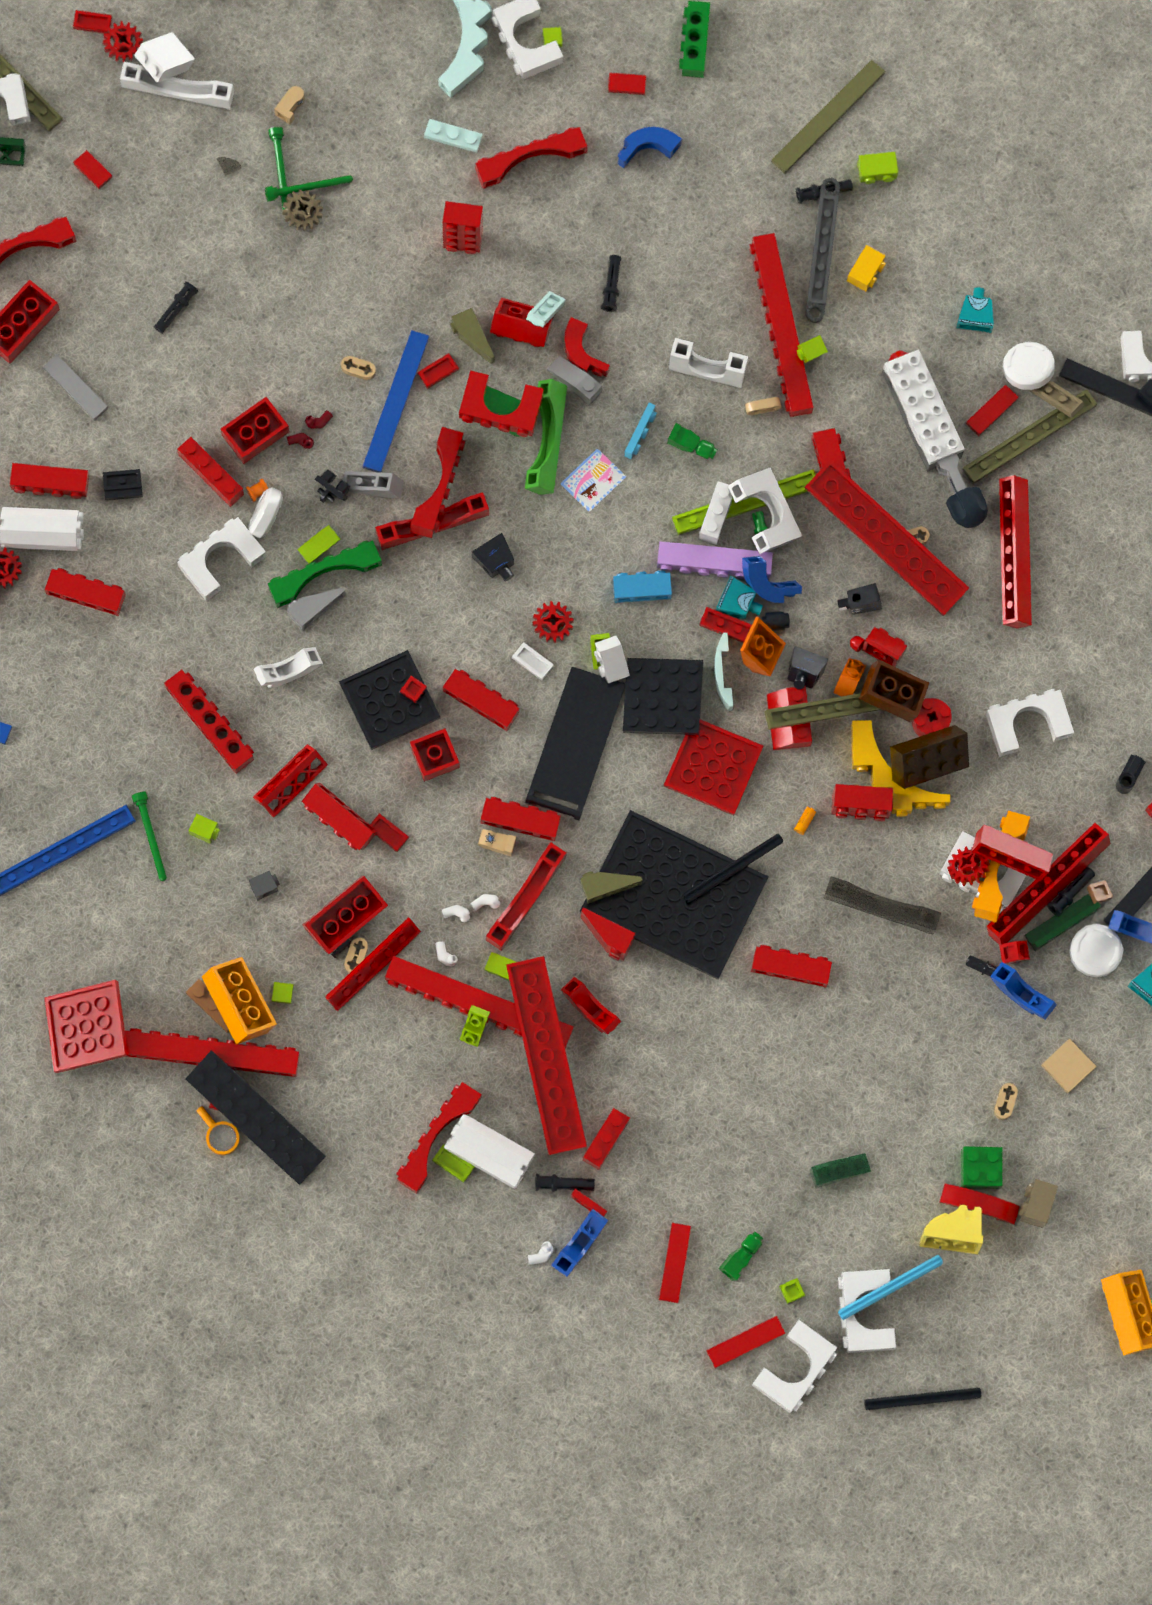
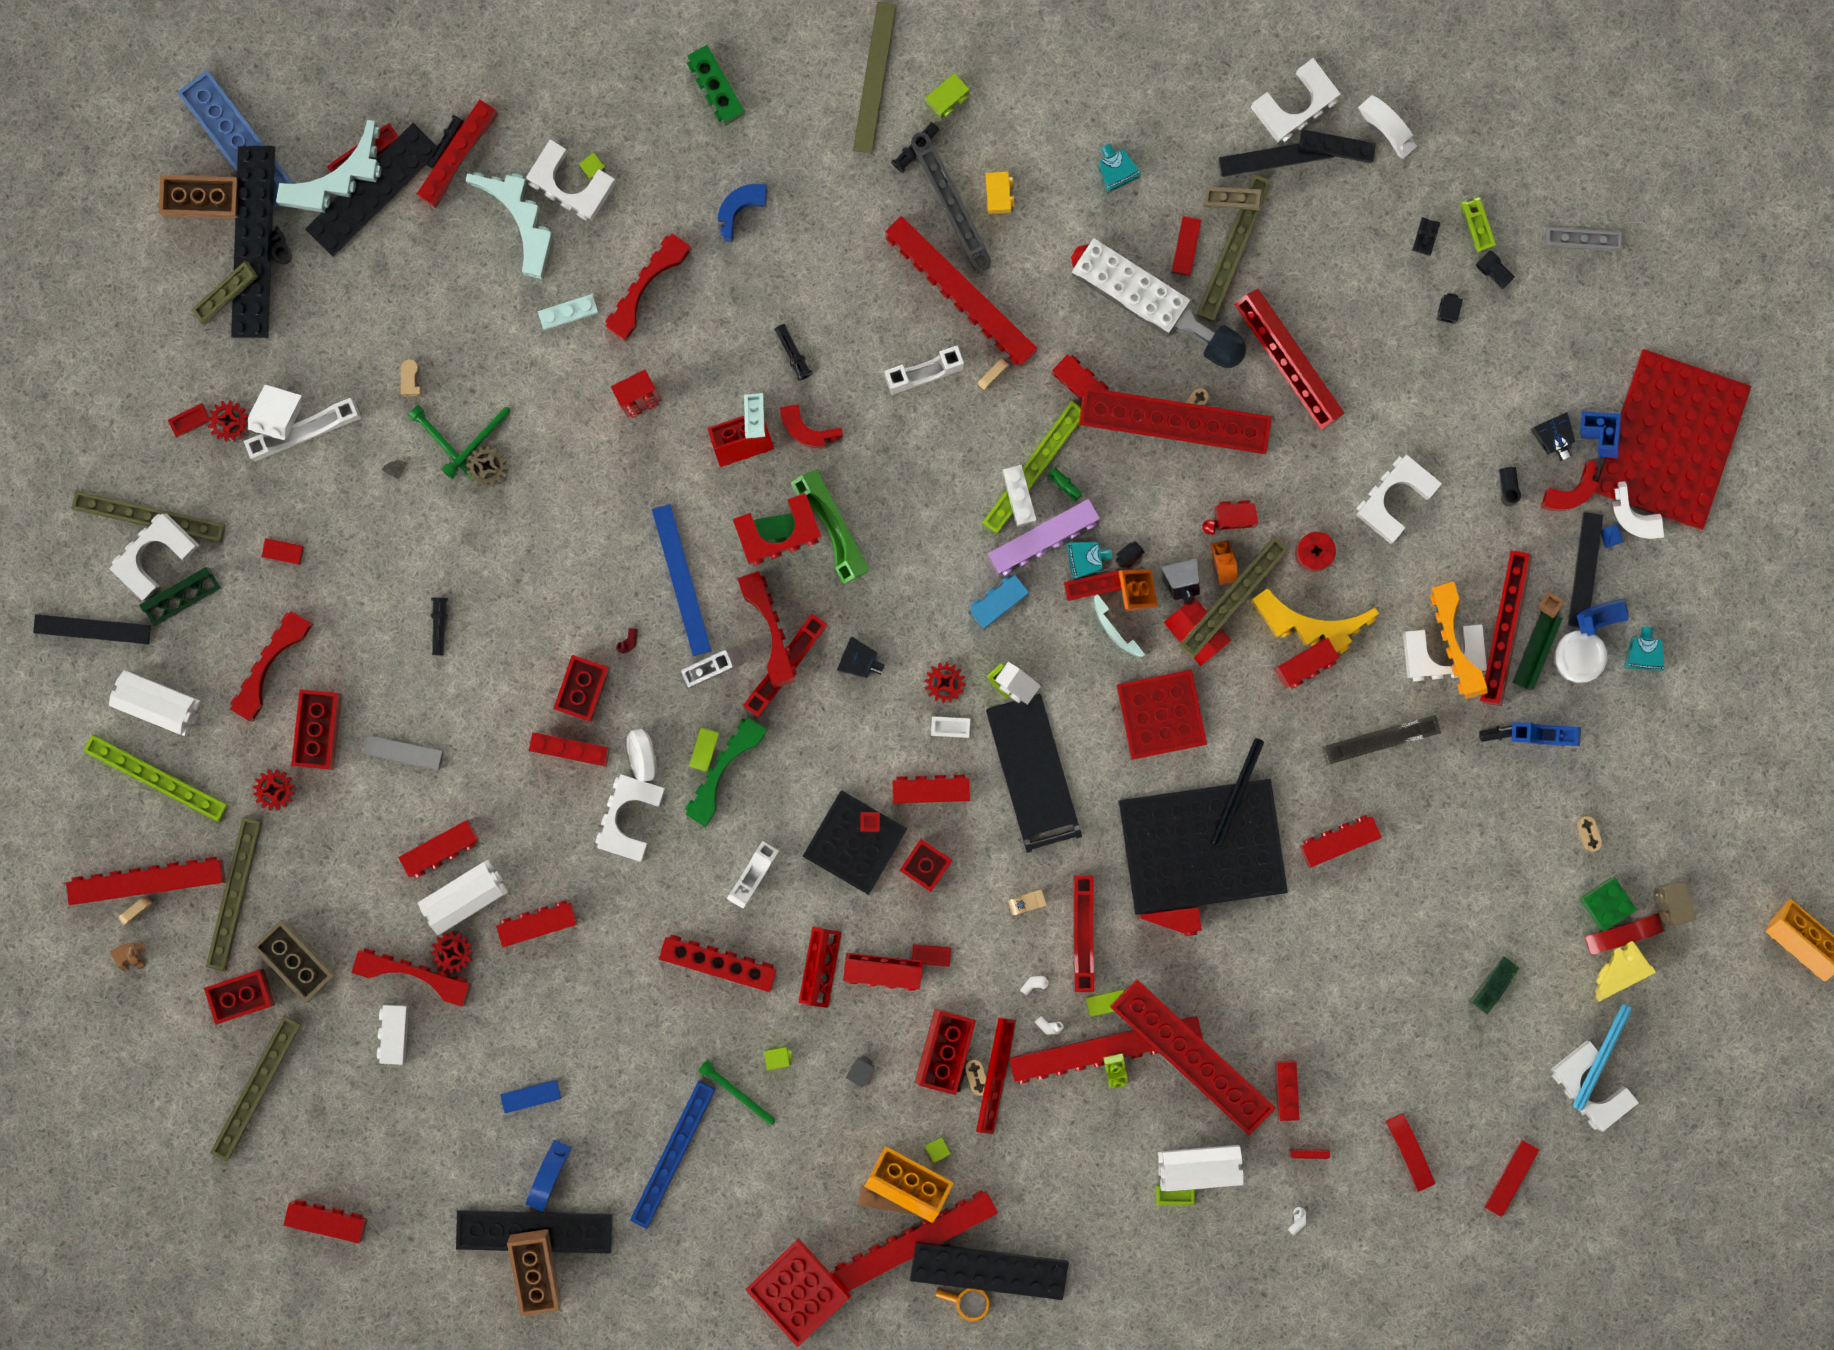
camera: 30 degrees left, 10 degrees up
(122, 484) = (502, 810): black plate -> none
(256, 490) = (619, 737): orange bush -> none
(302, 439) = (625, 667): dark red arm -> none
(311, 607) = (734, 810): light grey slope -> none
(326, 480) = (689, 692): black hips -> none
(357, 372) = (628, 568): tan beam -> none
(415, 1171) = (1148, 1142): red arch -> none
(438, 371) = (698, 529): red tile -> none
(471, 333) = (702, 477): olive slope -> none
(486, 899) = (1051, 956): white arm -> none
(520, 819) = (1033, 870): red brick -> none
(554, 1182) = (1269, 1155): black pin -> none
(576, 380) = (819, 458): light grey slope -> none
(580, 1243) = (1324, 1194): blue arch -> none
(590, 1007) = (1200, 990): red arch -> none
(593, 480) = (893, 535): sticker -> none
(603, 884) = (1141, 881): olive slope -> none
(627, 83) = (684, 164): red tile -> none
(641, 431) = (906, 466): medium azure plate -> none
(663, 696) = (1080, 684): black plate -> none
(690, 442) = (954, 447): green piece -> none
(739, 1258) = (1461, 1113): green piece -> none
(755, 574) = (1112, 531): blue arch -> none
(765, 487) = (1083, 470): white arch -> none
(792, 1290) = (1520, 1110): lime tile -> none
(805, 820) = (1268, 709): light orange piece -> none
(811, 349) = (1002, 298): lime slope -> none
(819, 1353) = (1576, 1198): white arch -> none
(868, 597) = (1195, 482): black torso -> none
(894, 690) = (1271, 551): reddish brown brick -> none
(923, 1398) = (1685, 1126): black axle -> none
(929, 756) = (1339, 588): dark brown brick -> none
(968, 867) = (1436, 668): red gear -> none
(1012, 852) = (1463, 625): brick -> none
(1014, 952) = (1516, 705): red brick -> none
(1028, 365) = (1193, 187): white piece -> none
(1066, 896) = (1526, 628): black pin -> none
(1068, 1065) = (1620, 768): tan tile -> none

